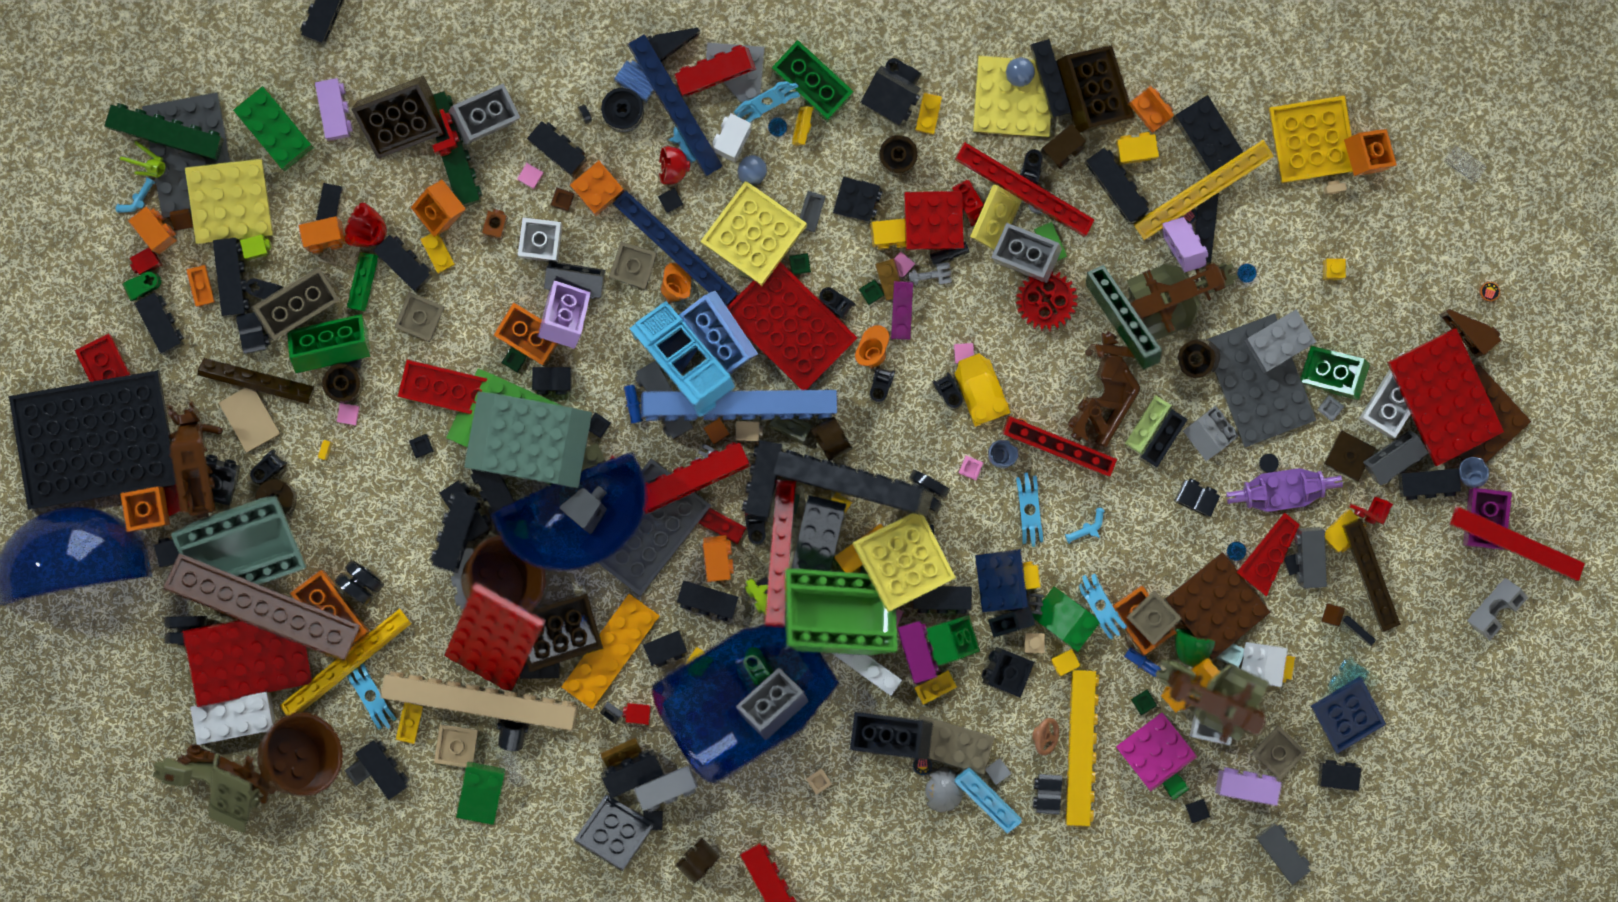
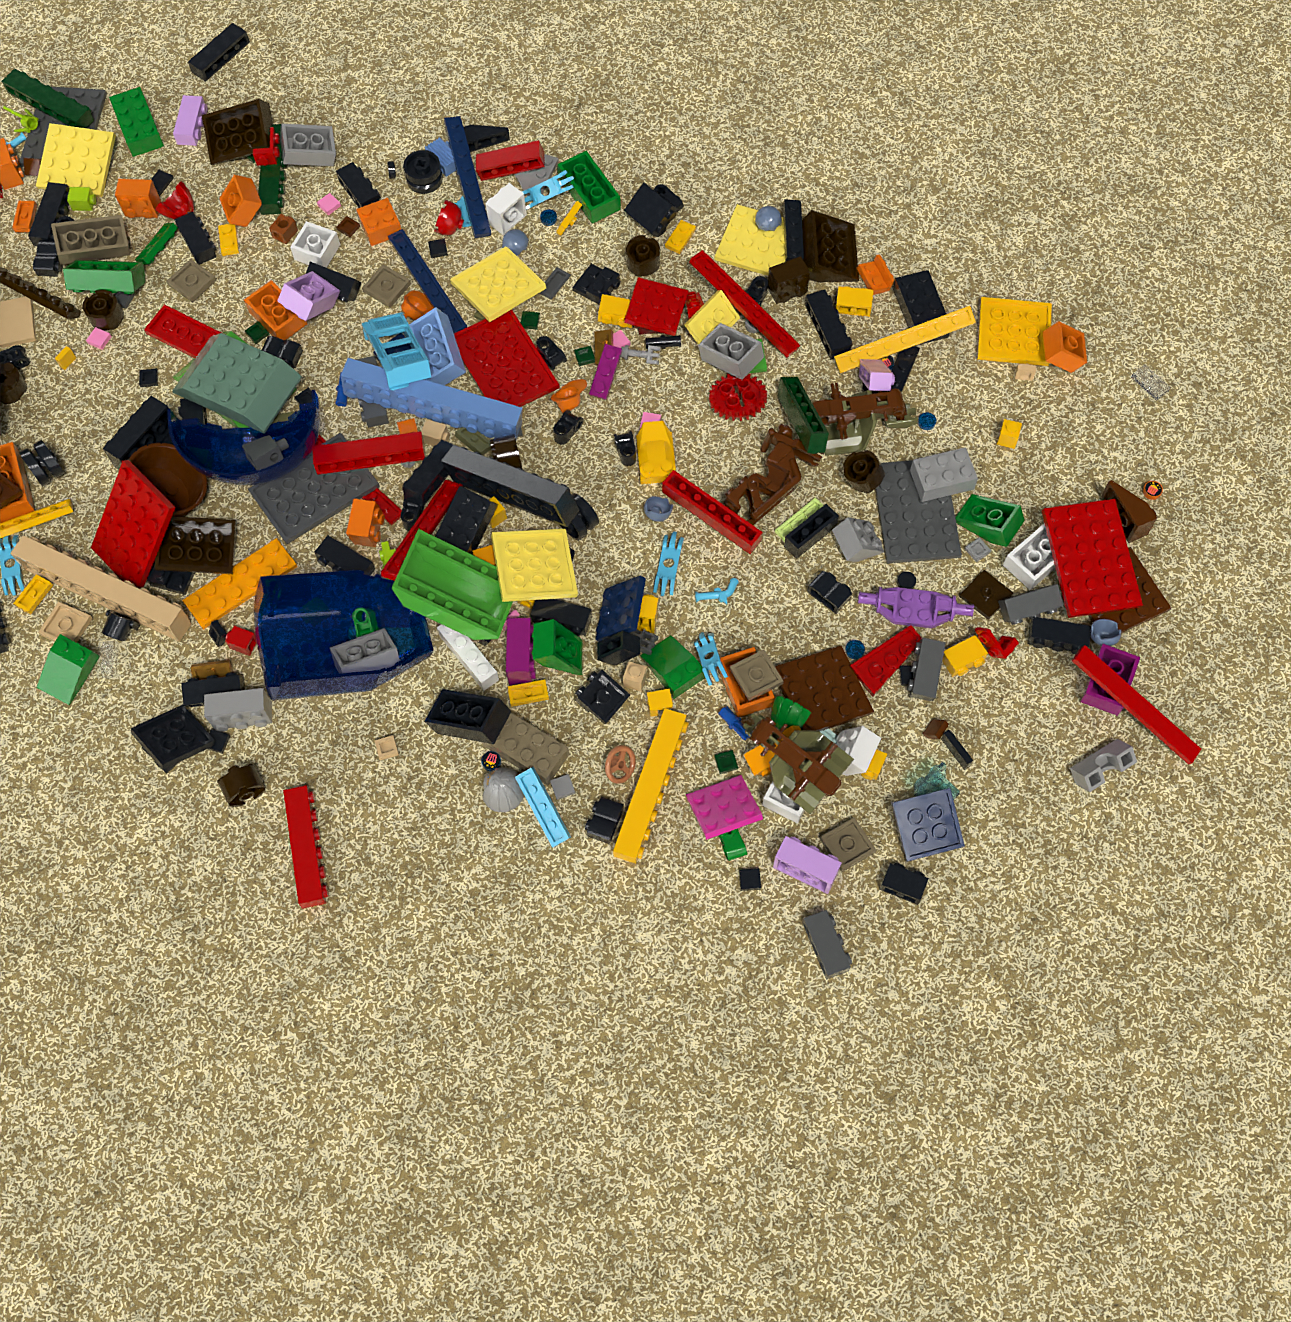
camera: 20 degrees right, 20 degrees down
(970, 467) = (625, 515): bright pink tile -> none
(1371, 575) = (982, 699): dark brown plate -> none

